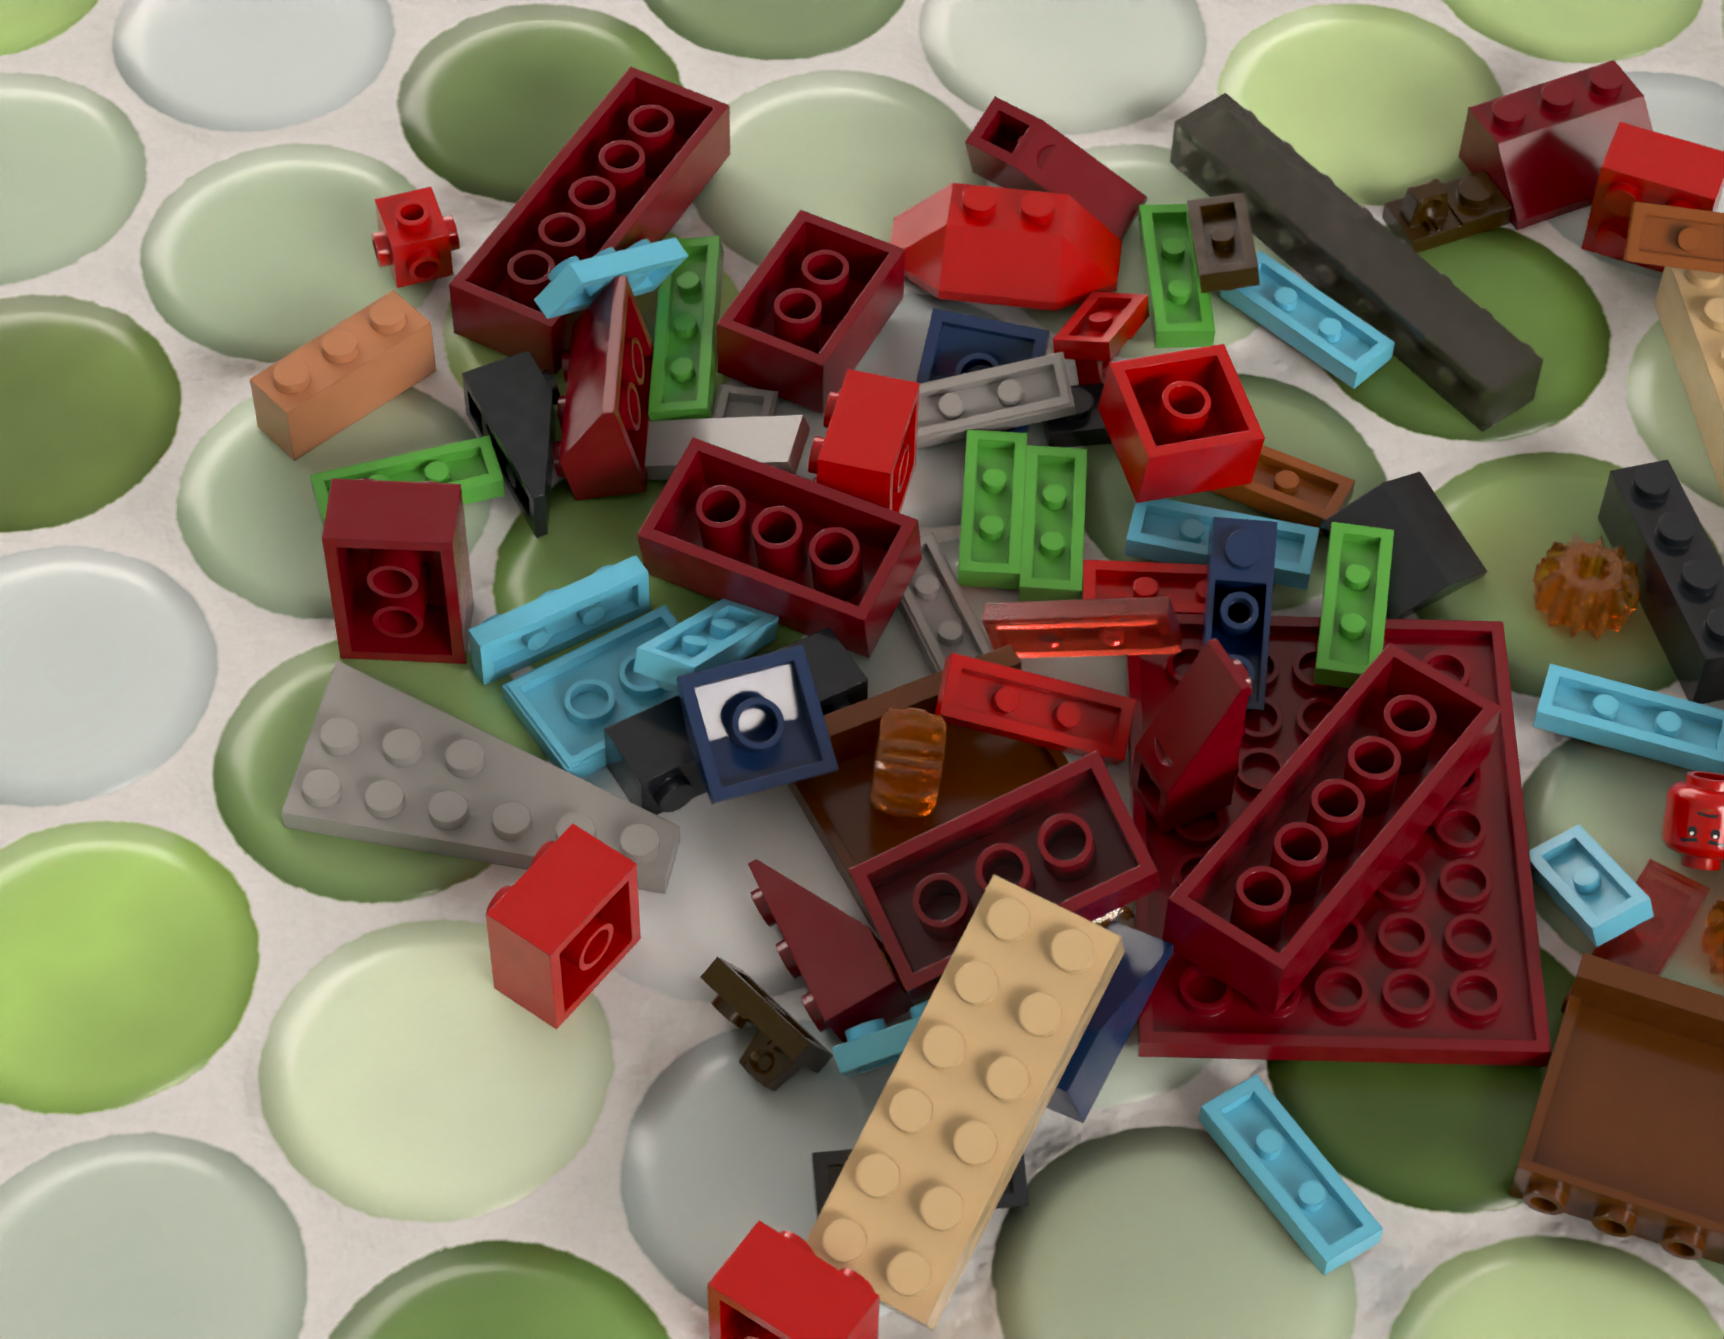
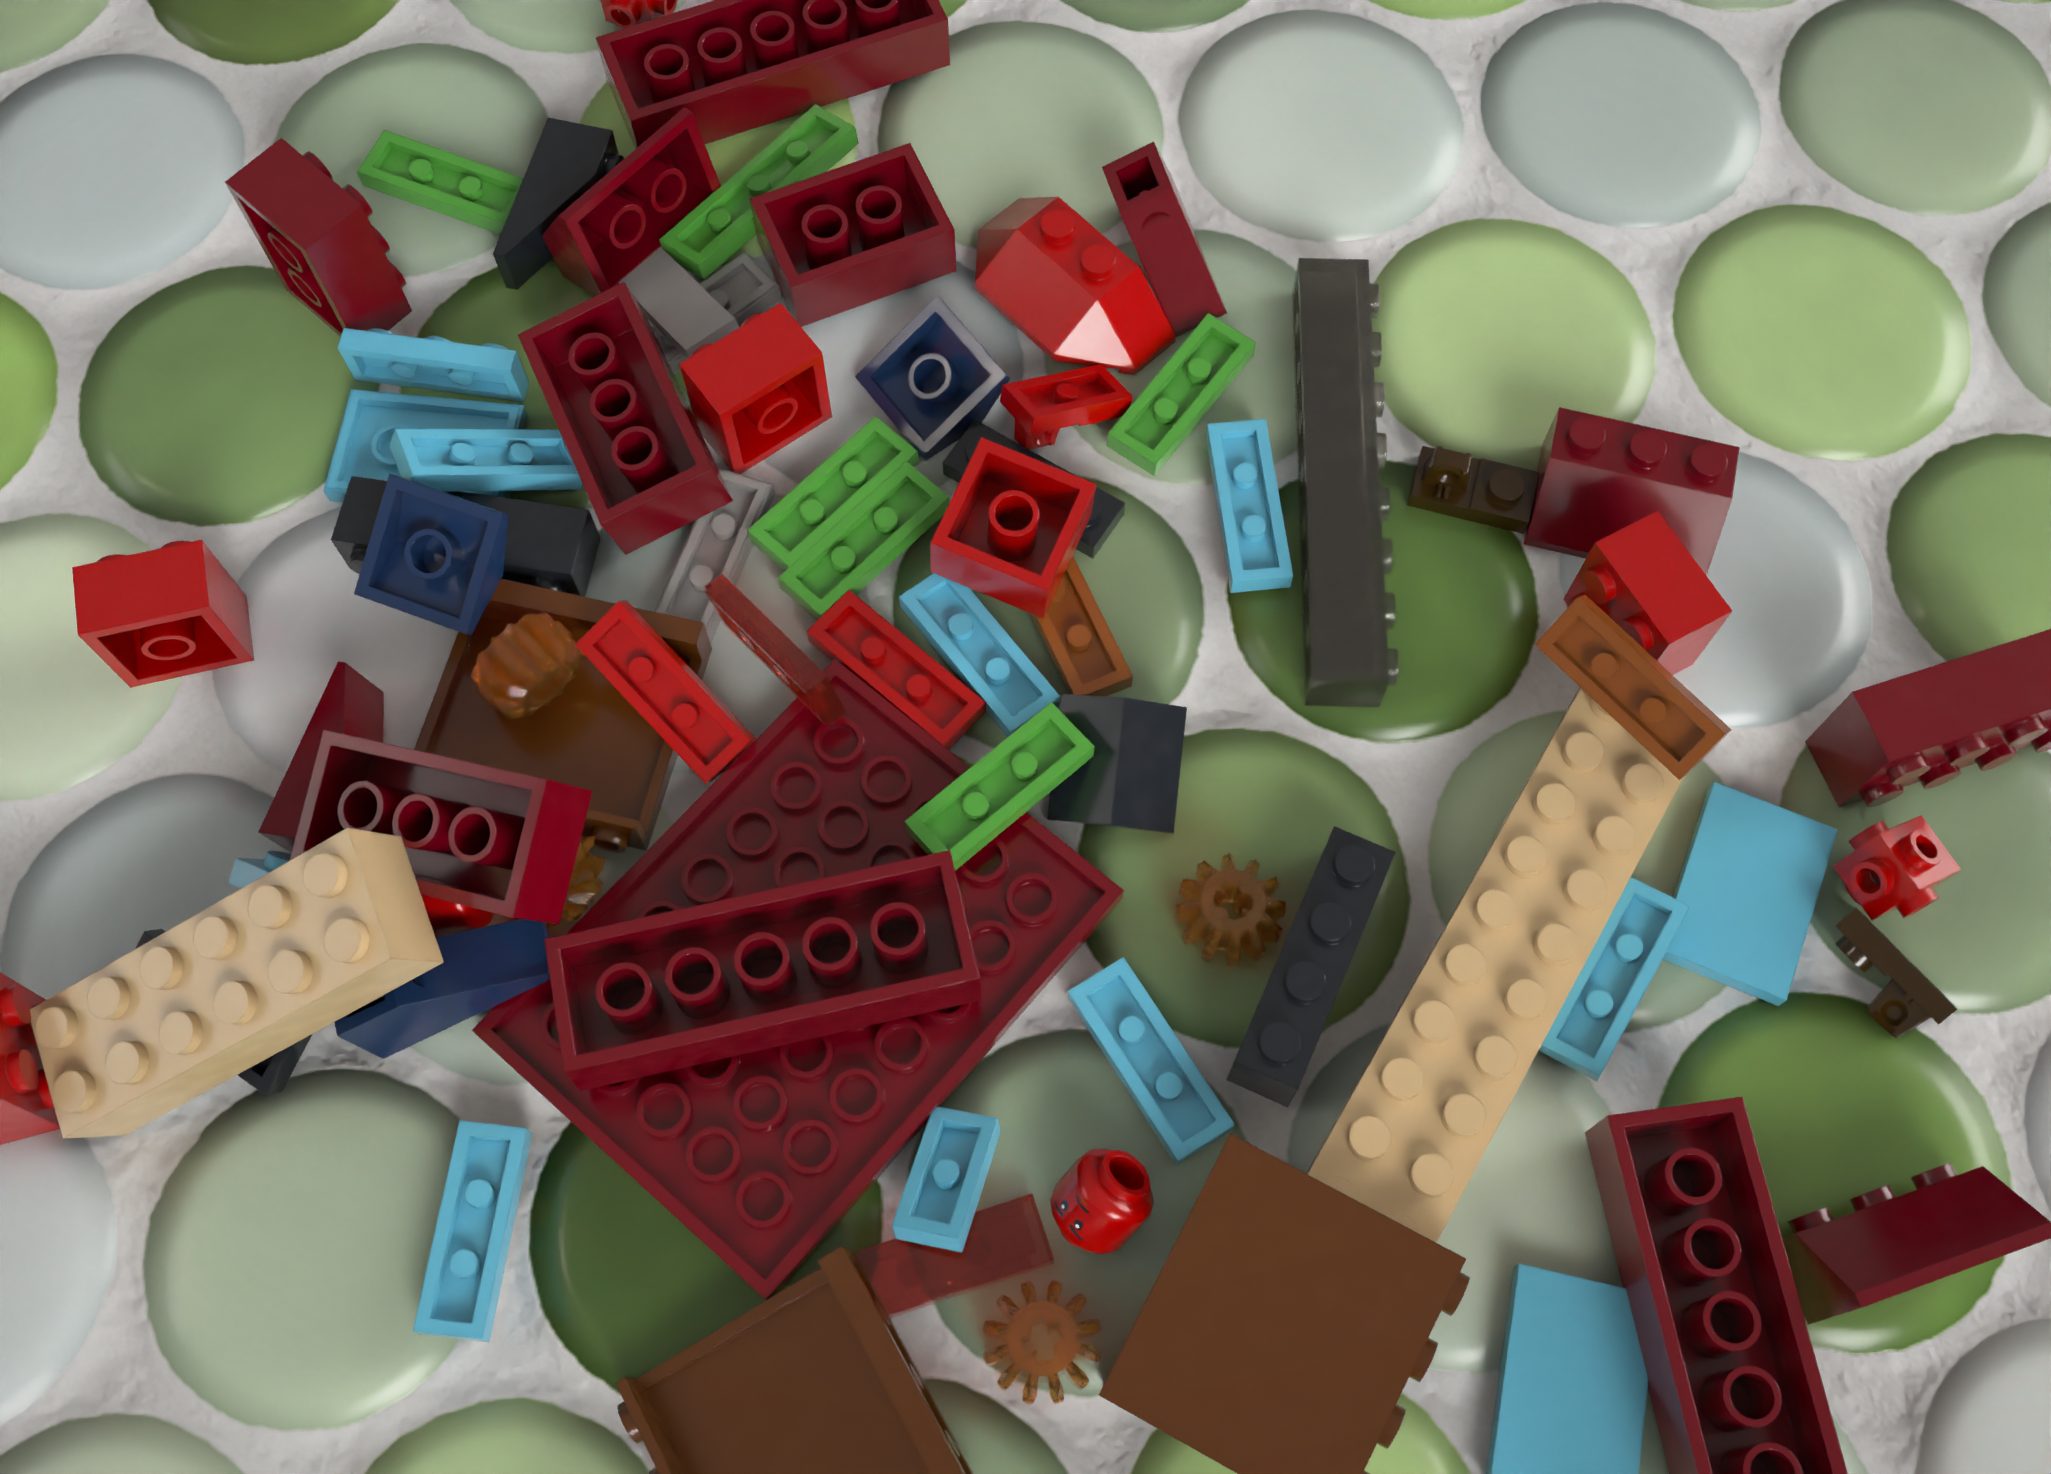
camera: 40 degrees right, 15 degrees up
(343, 375) = (484, 65): nougat brick -> none
(431, 783) = (243, 444): light grey wing -> none
(579, 282) = (748, 114): medium azure plate -> none
(781, 1042) = (244, 785): dark brown hinge -> none
(994, 399) = (910, 400): light grey tile -> none
(1193, 745) = (714, 822): dark red slope -> none
(1223, 243) = (1227, 392): dark brown hinge -> none
(1241, 595) = (898, 725): dark blue slope -> none

